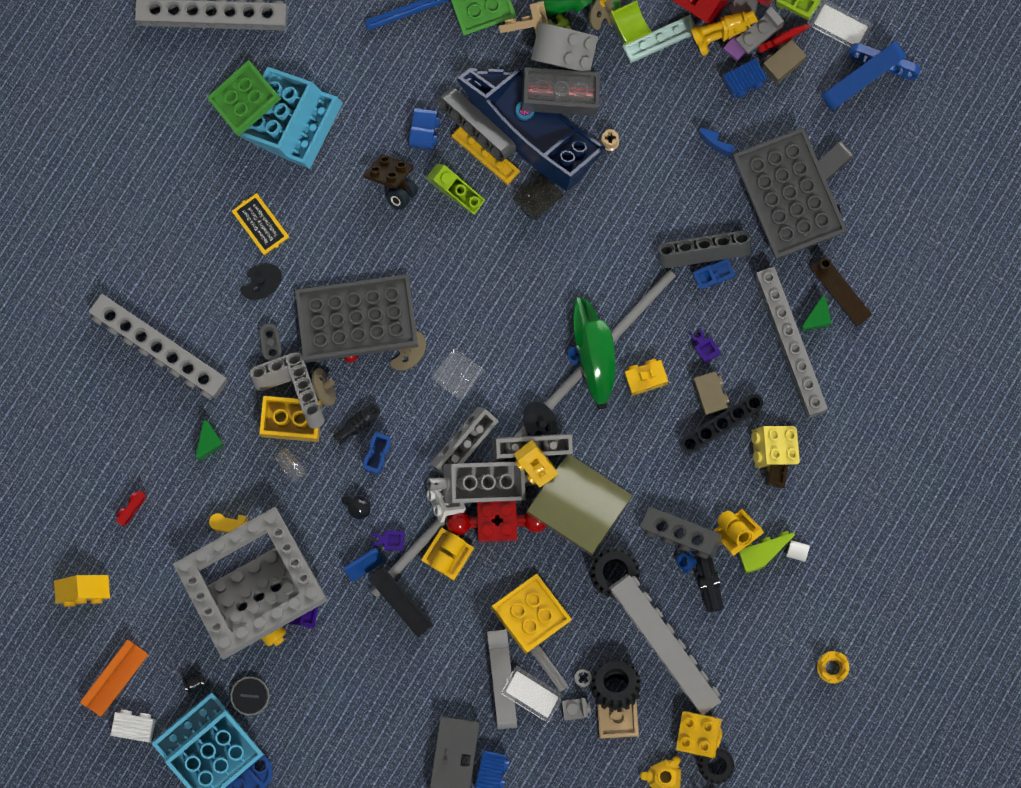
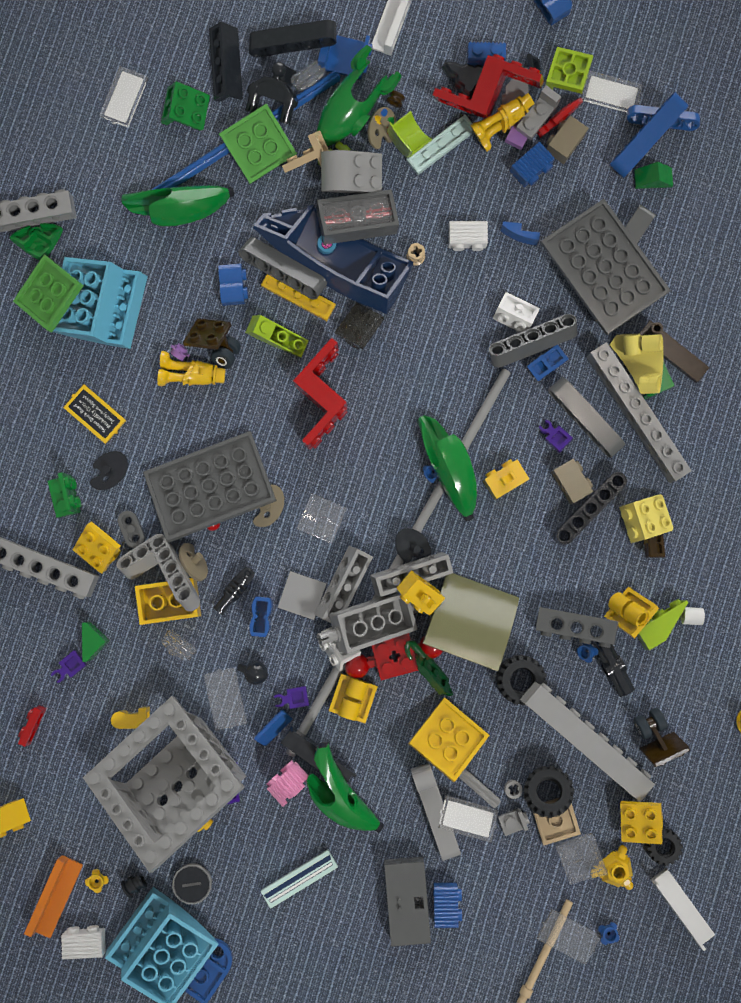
camera: 15 degrees left, 5 degrees up
(153, 672) = (96, 887): none -> yellow plate
(182, 459) = (70, 665): none -> dark purple plate
(212, 295) = (64, 495): none -> green bracket
(234, 352) = (97, 547): none -> yellow plate
(244, 44) = (37, 240): none -> green brick
(323, 527) = (225, 698): none -> clear piece
(355, 715) = (299, 878): none -> light aqua tile
(357, 182) = (179, 351): none -> medium lavender plate
(366, 618) = (288, 783): none -> bright pink brick
(369, 207) = (197, 372): none -> yellow piece
(387, 40) = (177, 204): none -> green piece
(411, 644) = (336, 797): none -> green piece
(421, 444) = (302, 595): none -> light grey tile
(485, 254) = (321, 394): none -> red bracket
(528, 541) = (429, 669): none -> dark green plate
(633, 758) = (581, 859): none -> clear plate
(664, 133) = (468, 235): none -> white brick
(694, 218) = (515, 313): none -> white bracket
(732, 672) = (664, 747): none -> dark brown plate
(739, 335) = (586, 417): none -> beam
(807, 290) = (642, 358): none -> light yellow panel
(862, 116) = (653, 176): none -> green slope

